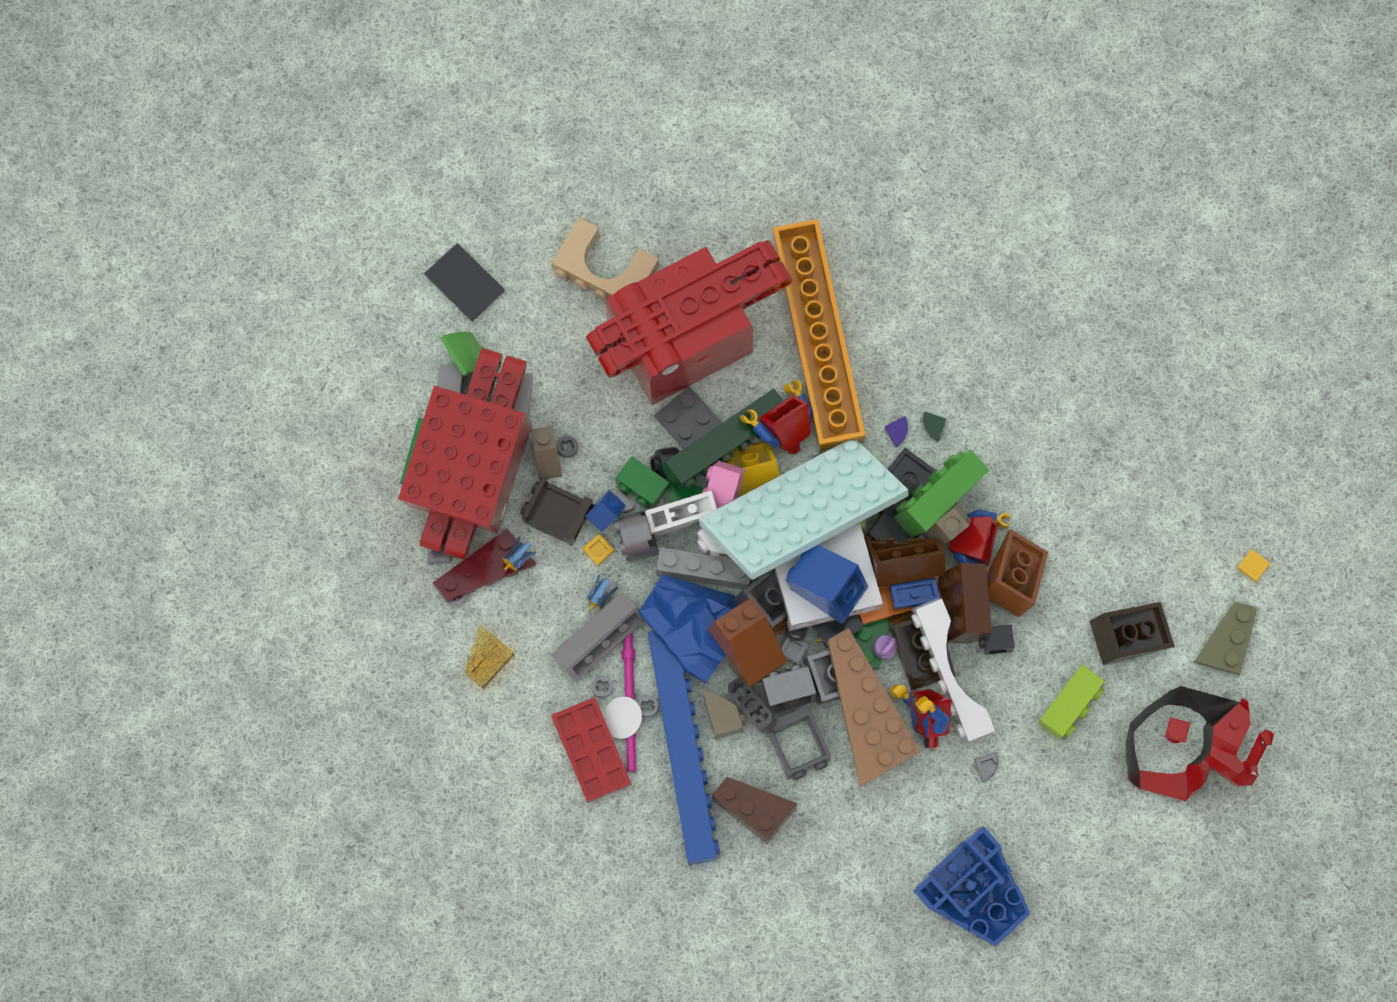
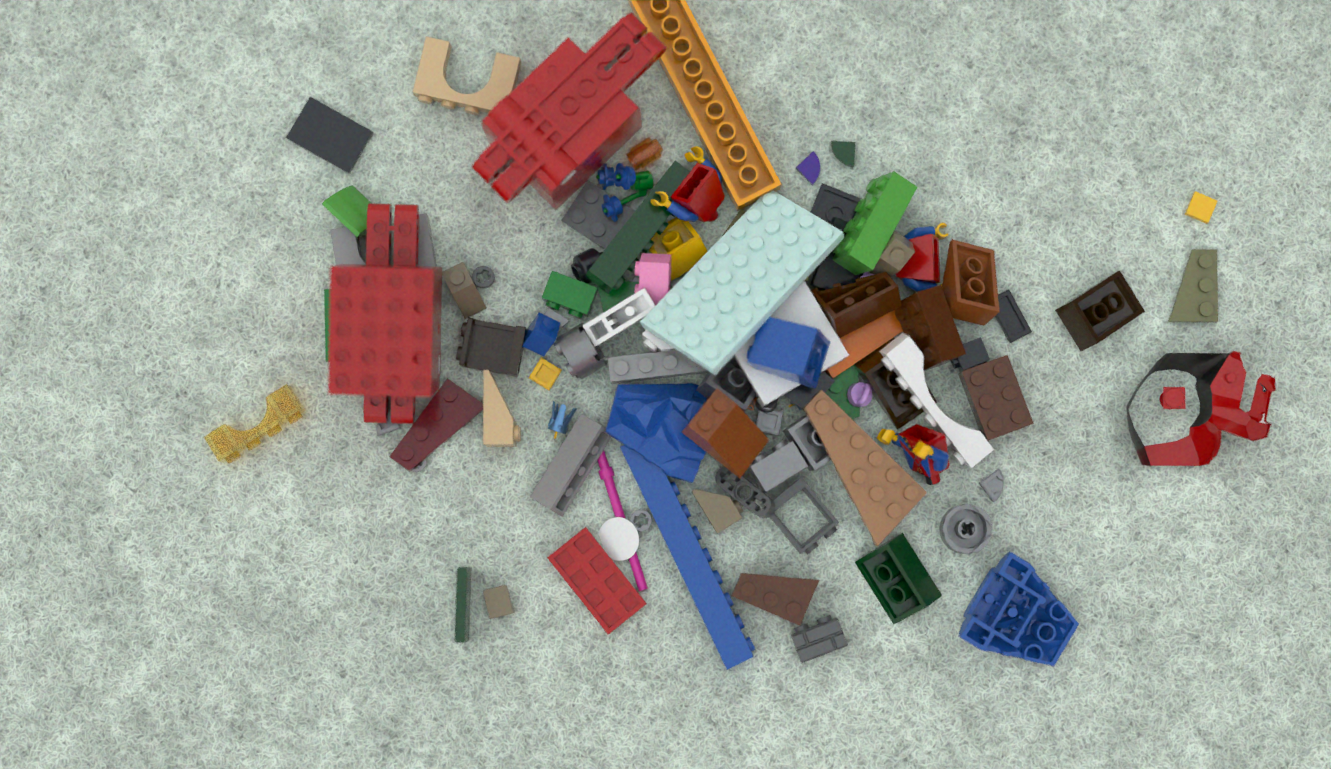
camera: 15 degrees left, 10 degrees up
(290, 530) = (281, 407): none -> clear yellow arch
(461, 733) = (463, 598): none -> dark green tile
(487, 658) = (465, 517): clear yellow wing -> none
(494, 743) = (498, 601): none -> dark tan panel
(514, 558) = (466, 405): flat silver piece -> none
(542, 581) = (498, 421): none -> tan slope
(600, 694) = (590, 521): flat silver bush -> none
(723, 390) = (627, 179): none -> blue plant
(748, 376) = (644, 153): none -> clear orange brick
(782, 860) = (818, 639): none -> dark grey brick
(872, 825) = (898, 579): none -> dark green slope
(913, 593) = (875, 333): blue plate -> none
(941, 808) = (979, 529): none -> flat silver brick
(1010, 685) = (995, 398): none -> reddish brown brick
(1046, 617) = (1011, 318): none -> black tile
(1072, 703) = (1061, 398): lime brick -> none

